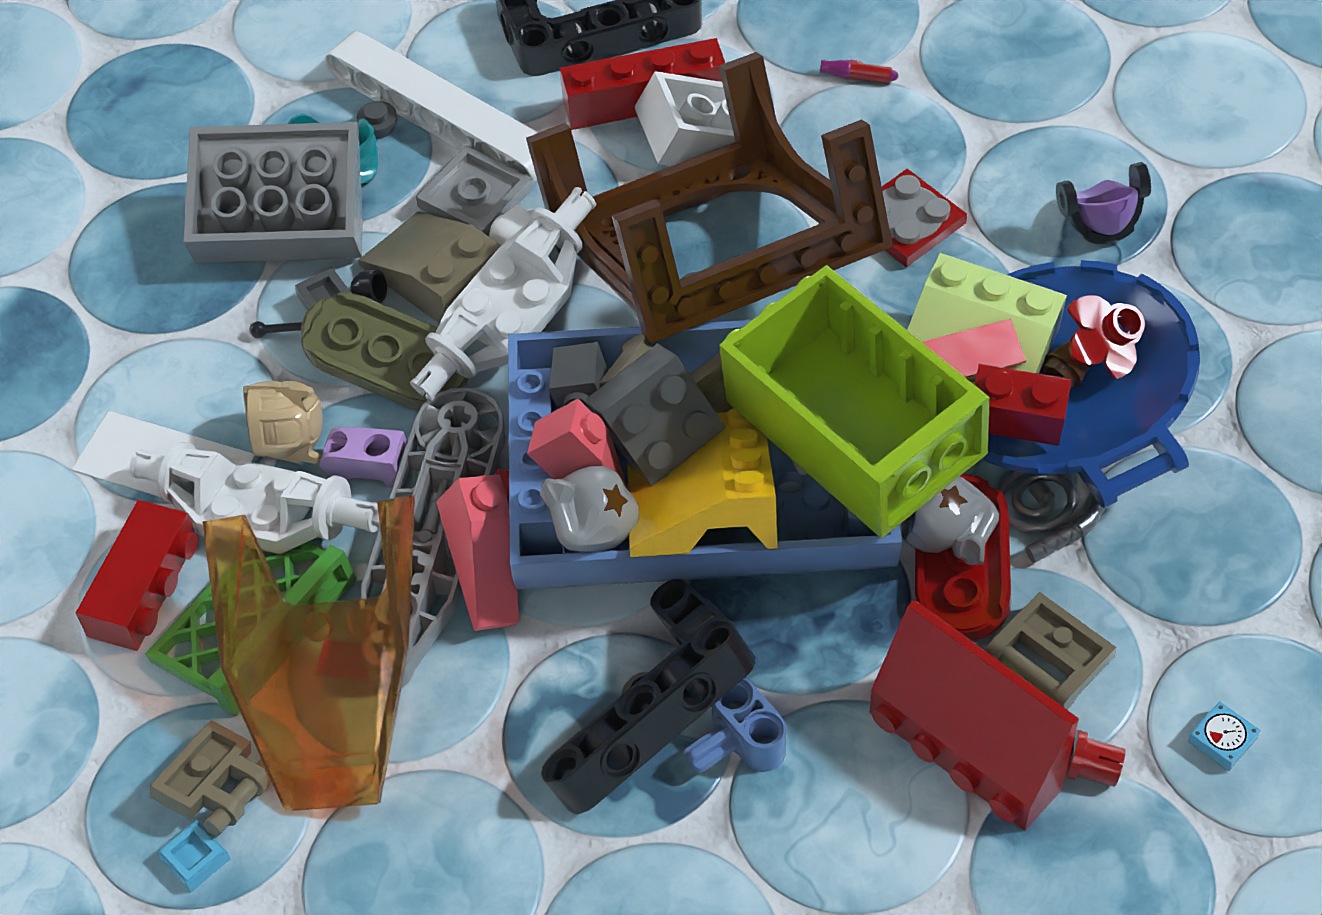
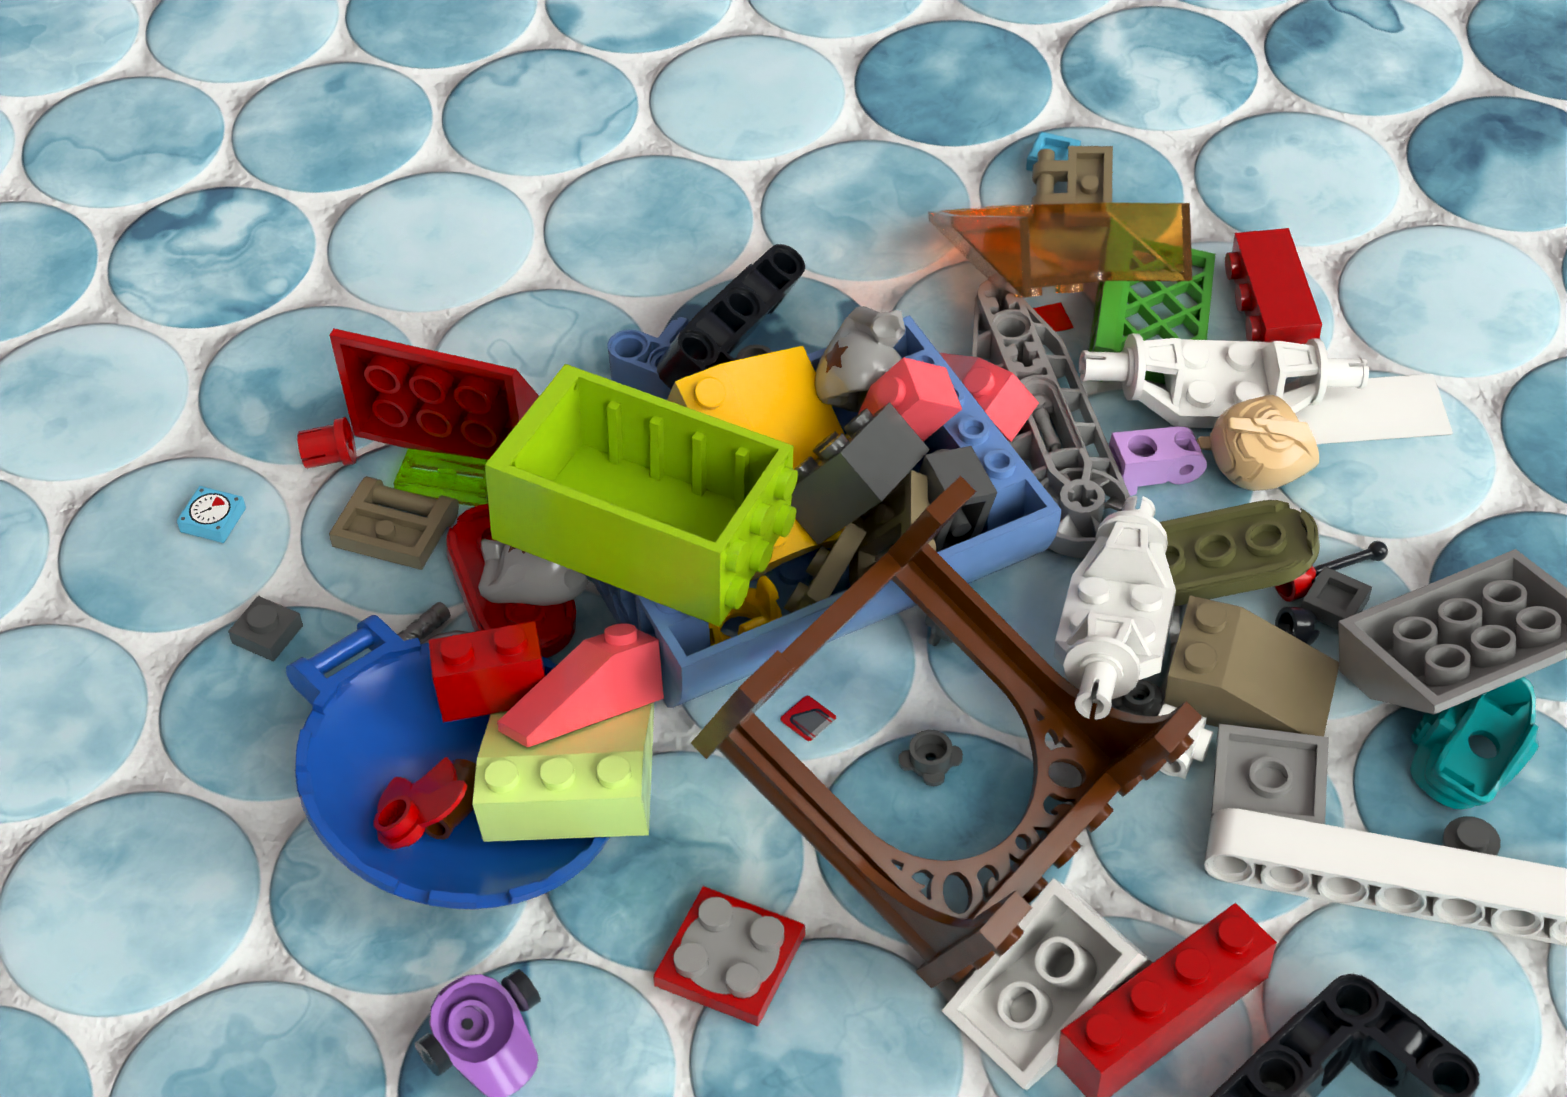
camera: 155 degrees right, 5 degrees down
(1193, 595) = (265, 628): none -> dark grey plate

